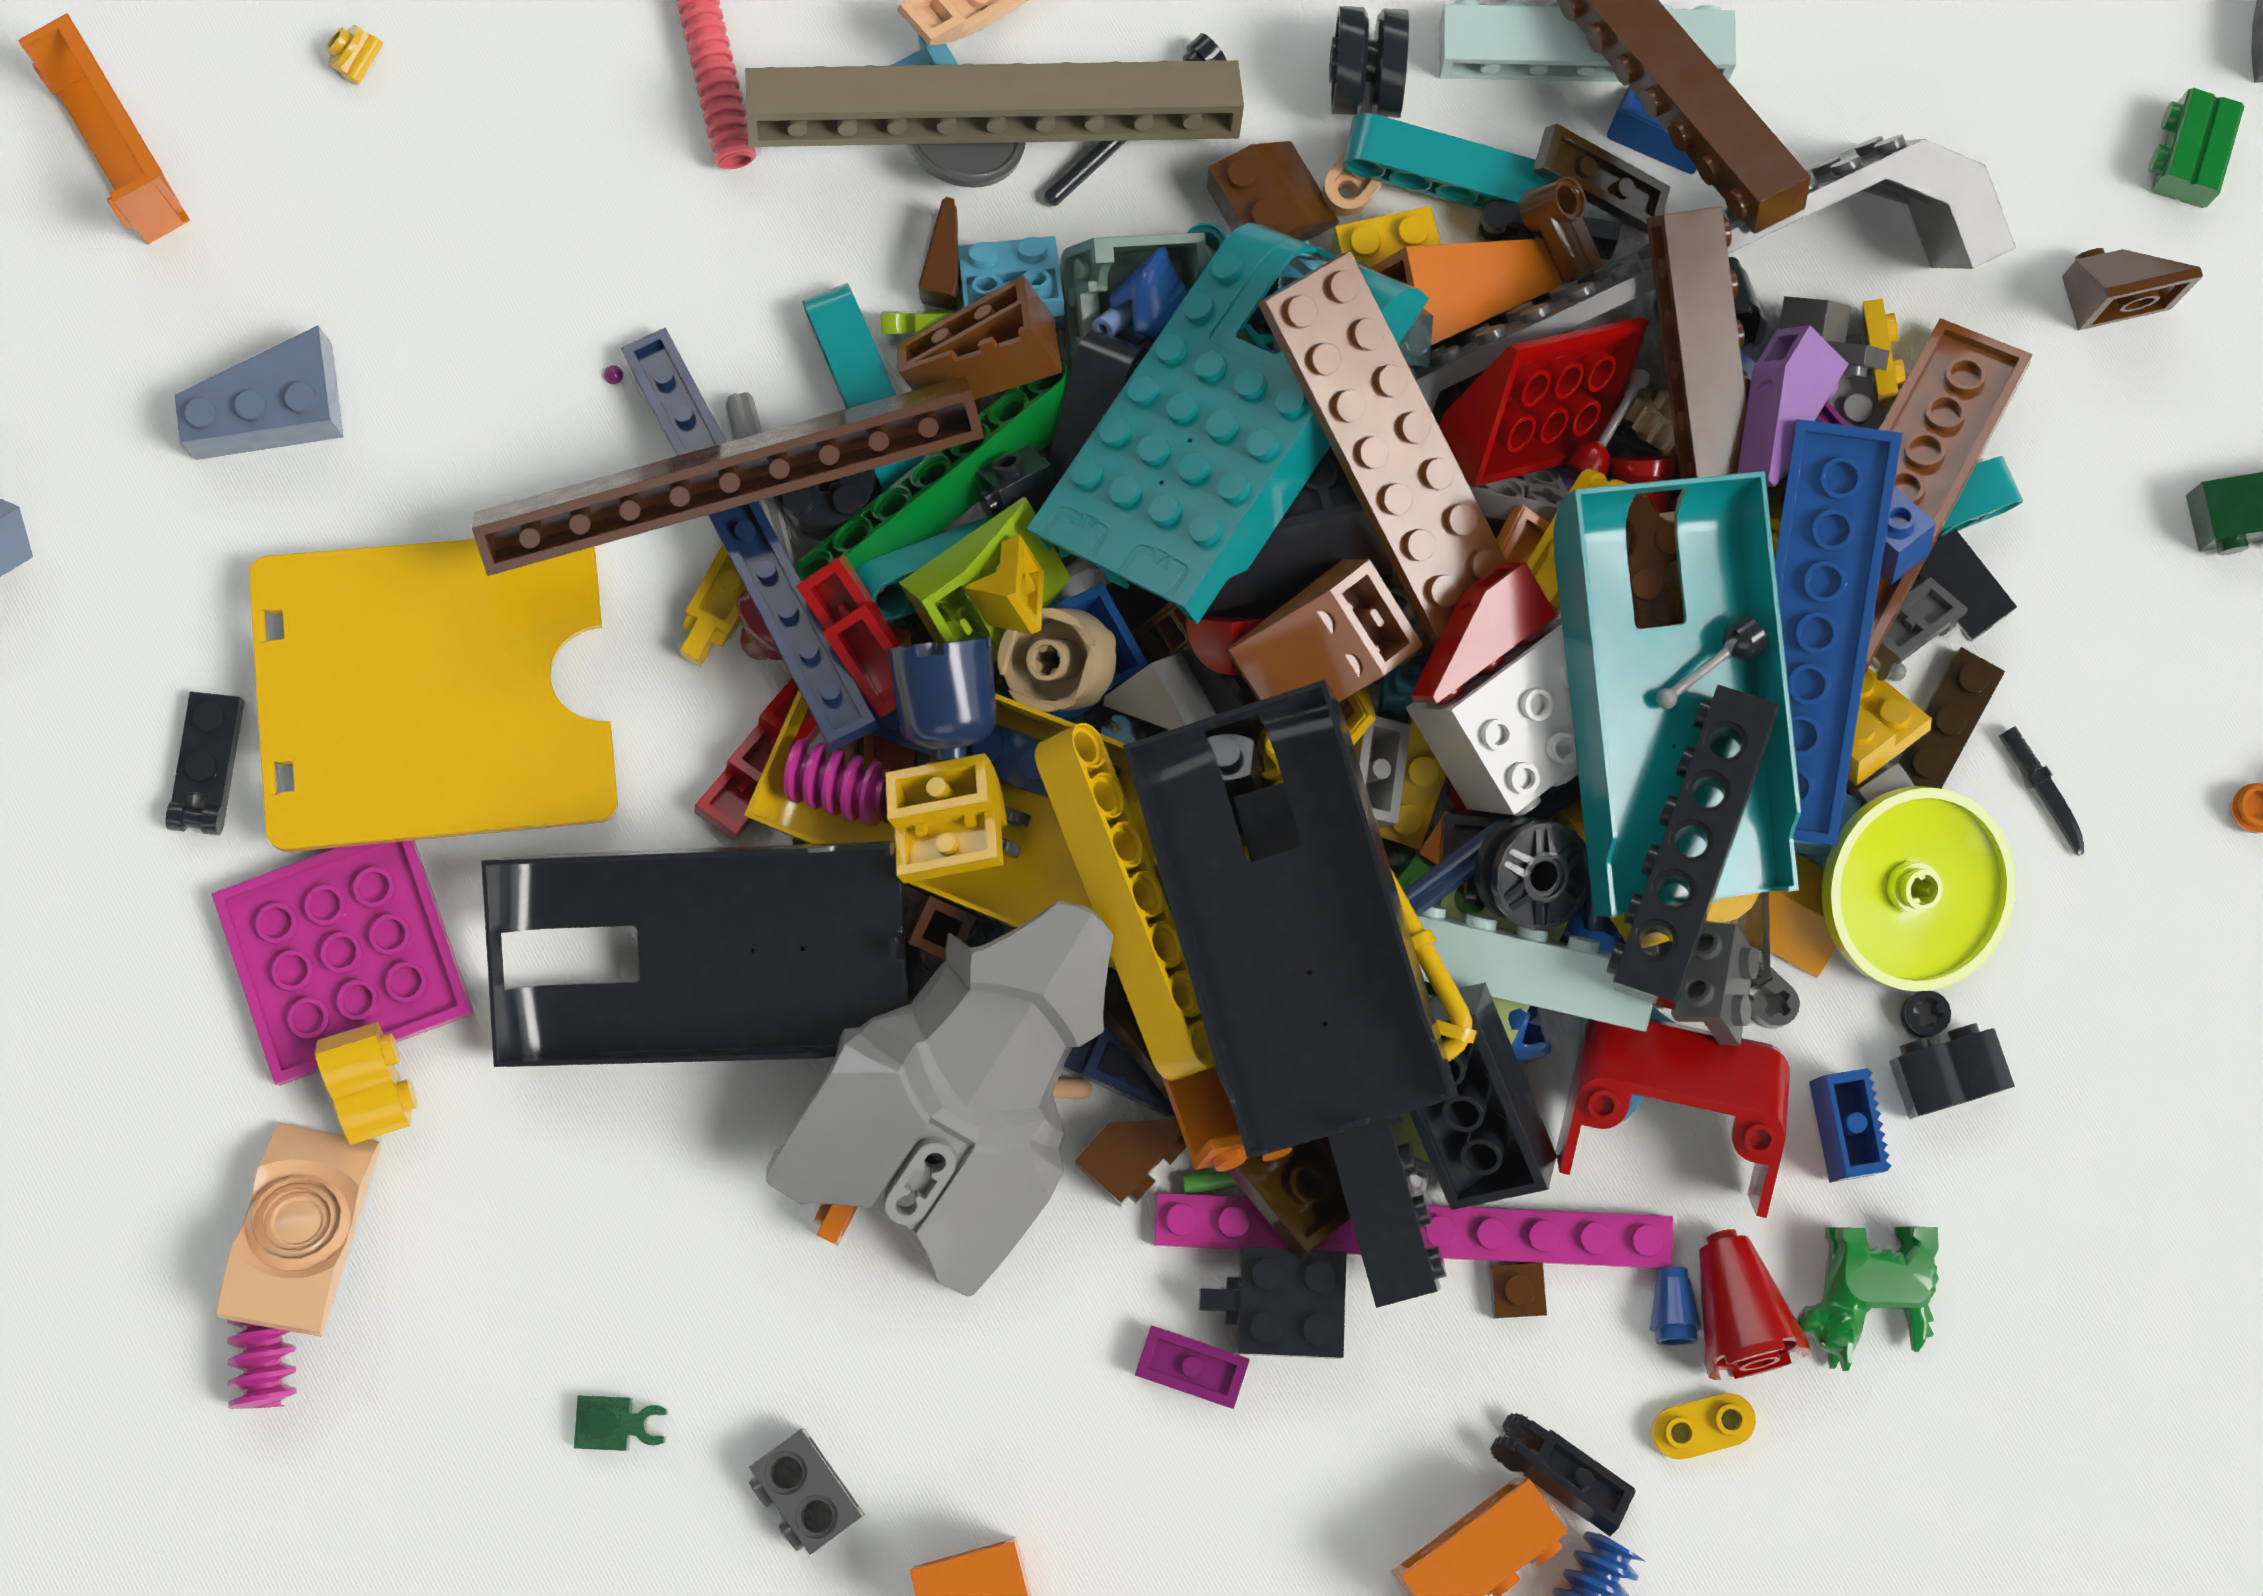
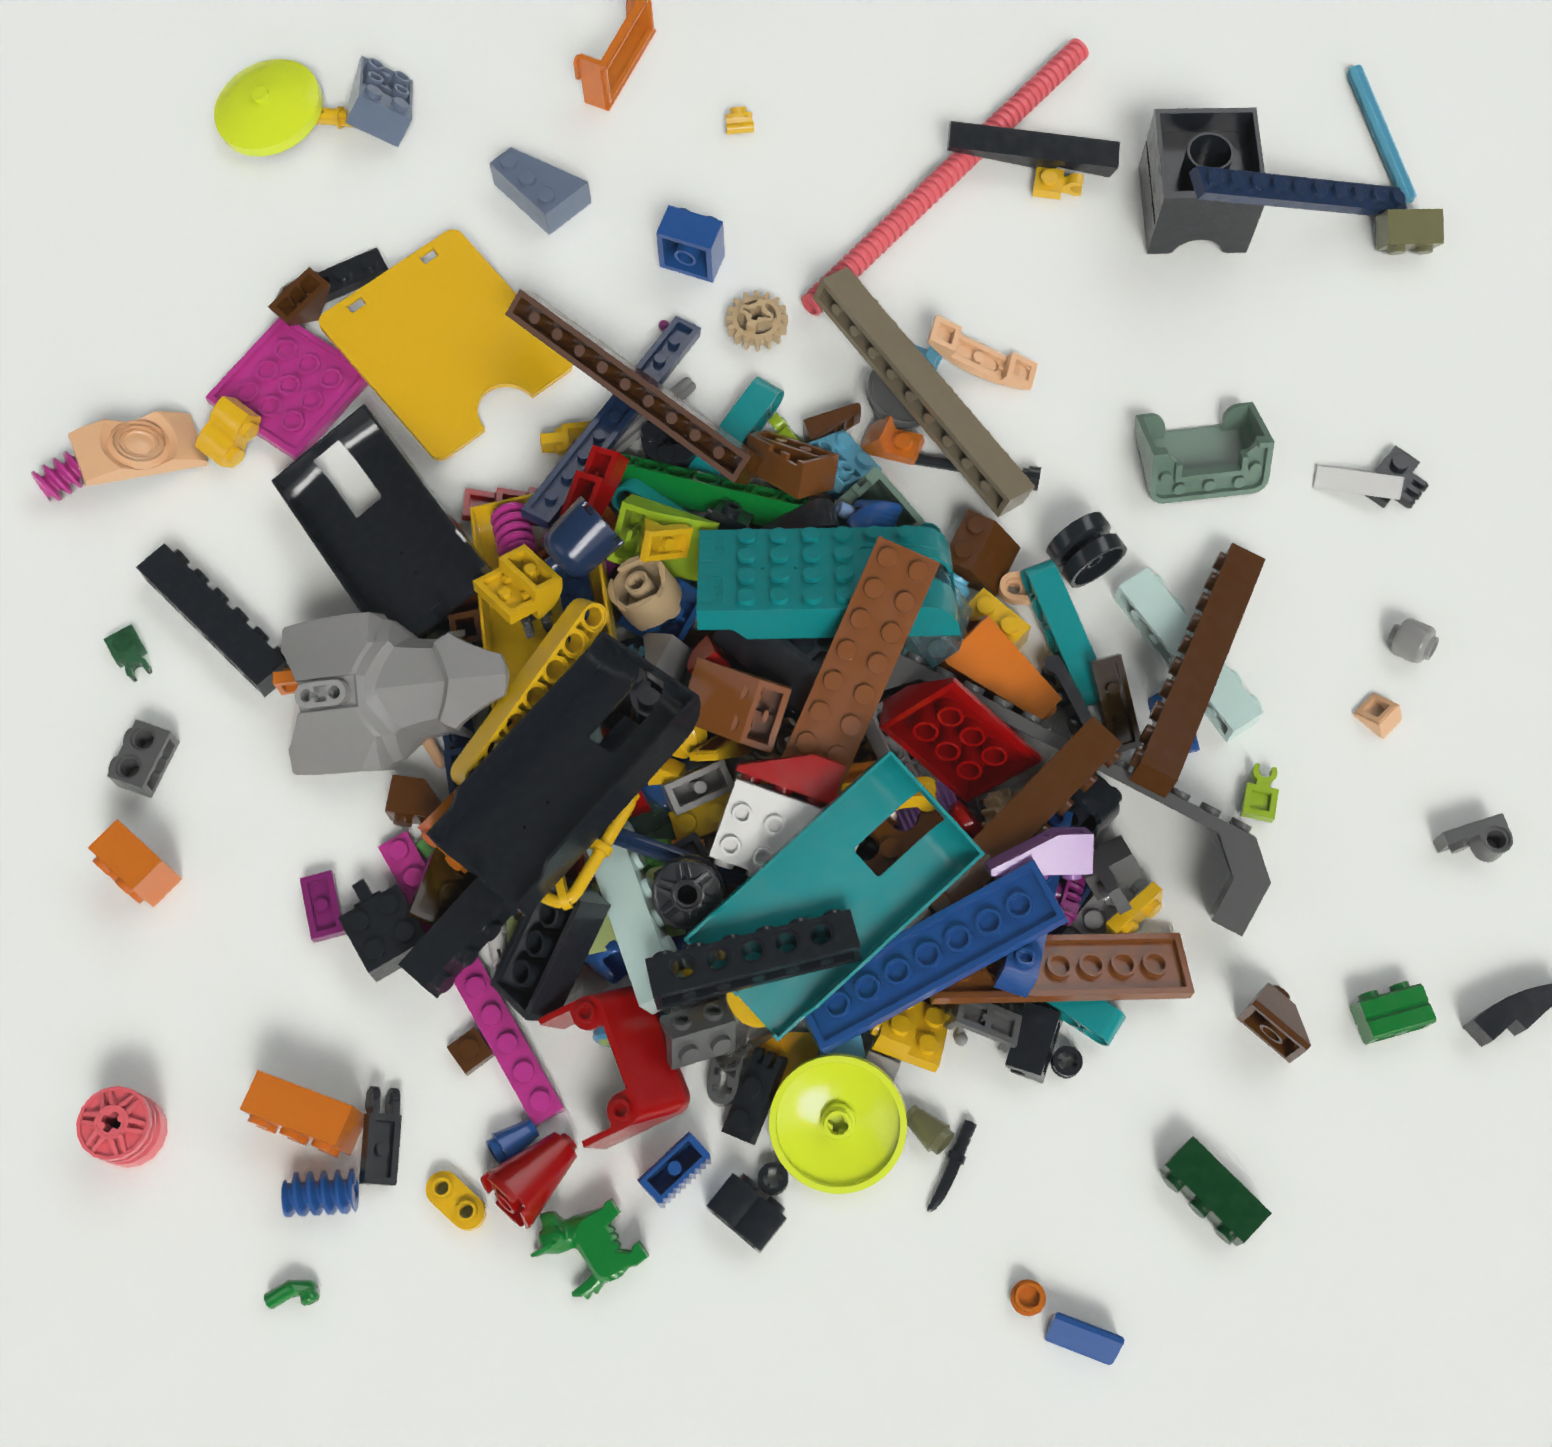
camera: 60 degrees right, 10 degrees down
(203, 852) = (301, 299): none -> reddish brown slope
(526, 250) = (690, 243): none -> blue brick
(653, 1272) = (213, 618): none -> black brick
(694, 258) = (755, 317): none -> tan gear
(1022, 200) = (892, 443): none -> orange slope
(1557, 213) = (1067, 697): reddish brown piece -> none
(1594, 454) = (952, 790): hinge -> none
(1740, 640) = (886, 911): hinge -> none
(1816, 971) = (755, 1095): none -> black hinge
(1831, 100) = (1259, 798): none -> lime plate
(1954, 714) = (951, 1085): dark brown plate -> none
(1991, 784) = (929, 1130): none -> olive cone
(2016, 552) = (1066, 1051): none -> black bush

